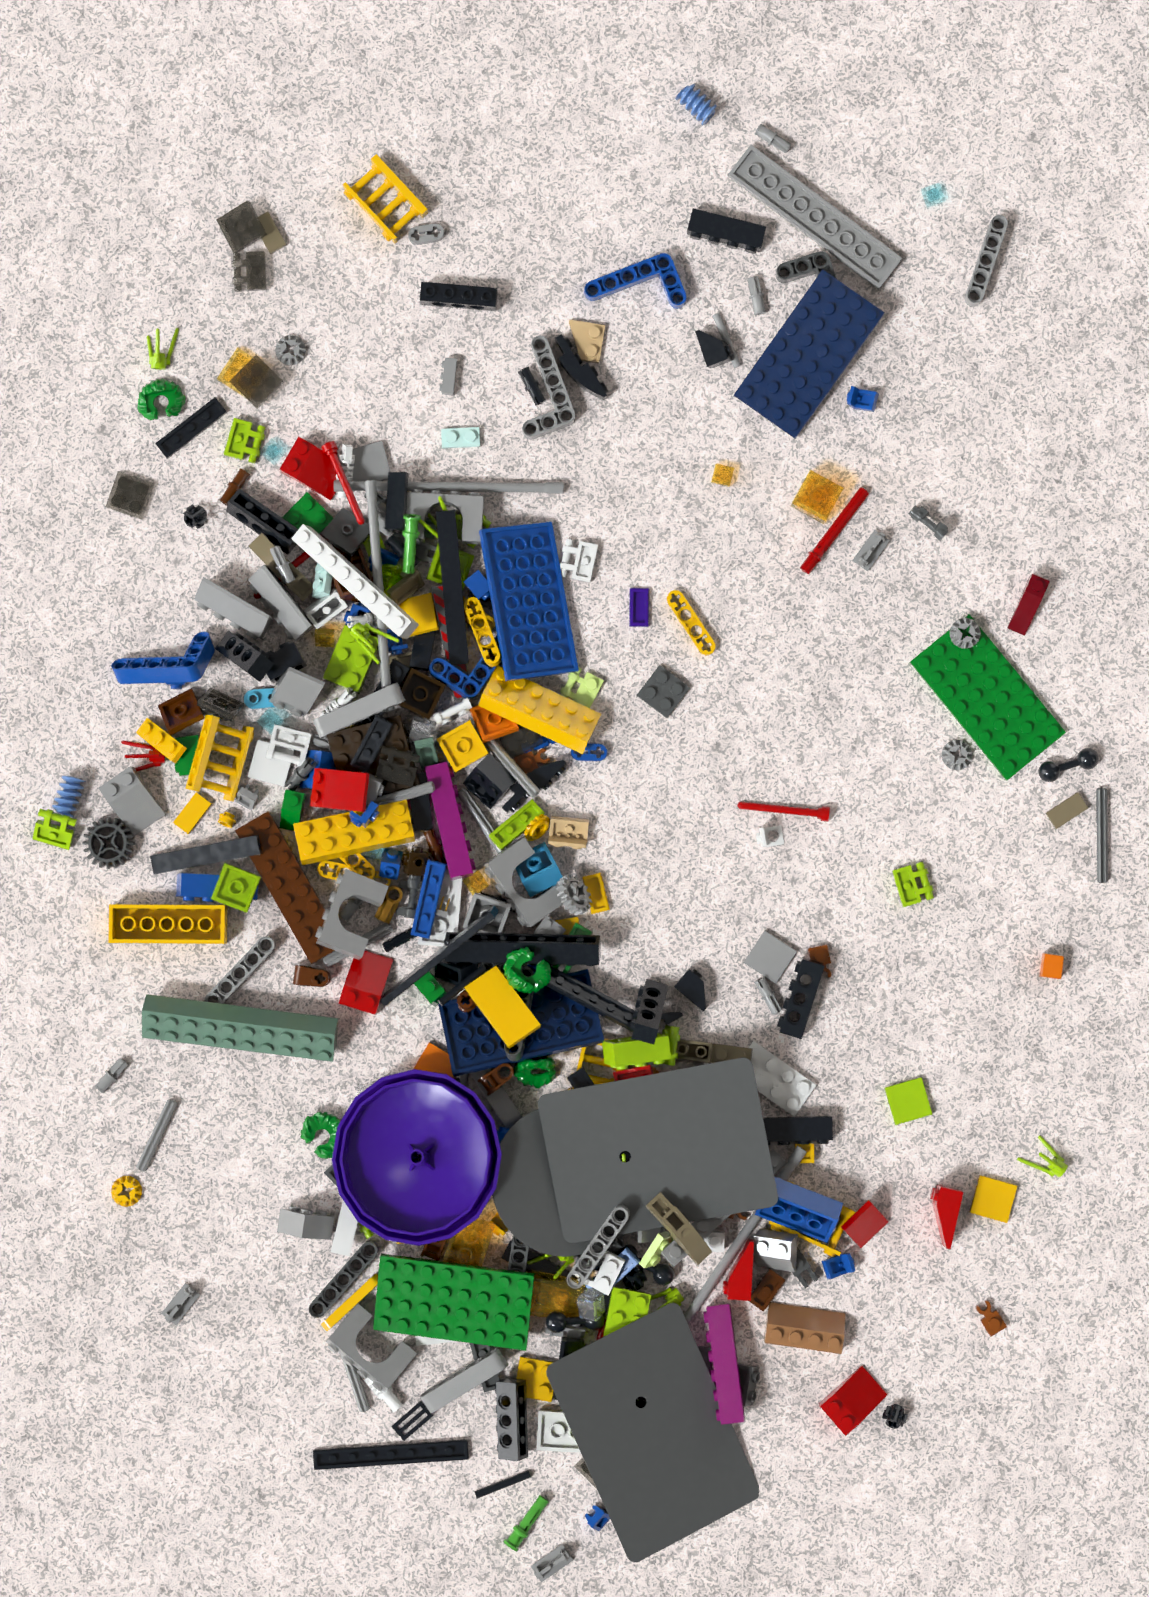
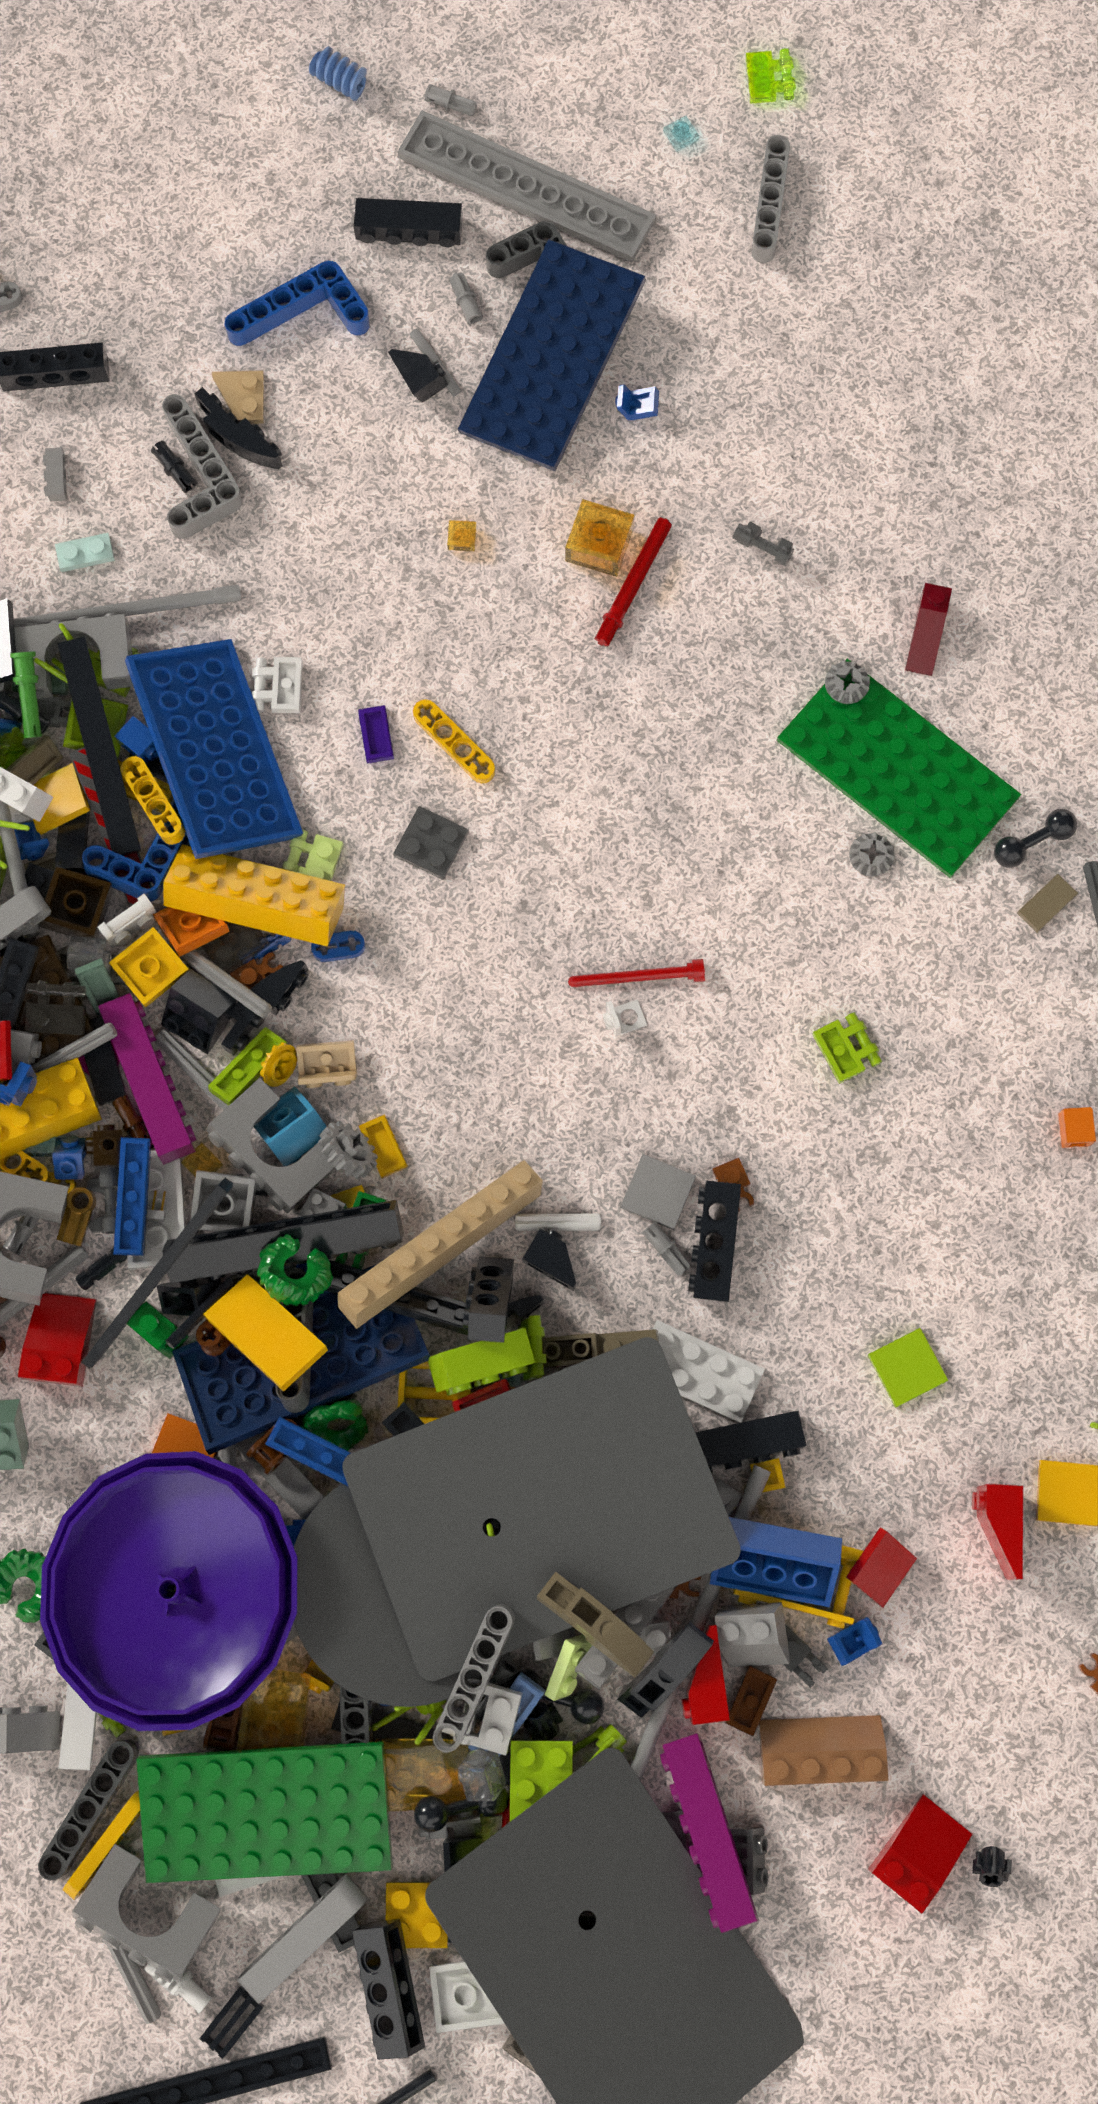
camera: 10 degrees left, 10 degrees down
(518, 1086) = (308, 1449): none -> blue tile
(623, 968) = (439, 1244): none -> tan brick
(699, 964) = (558, 1222): none -> white axle
(717, 1263) = (666, 1670): none -> black slope
(871, 550) = (691, 597): light grey hinge -> none
(999, 159) = (761, 79): none -> clear neon green plate

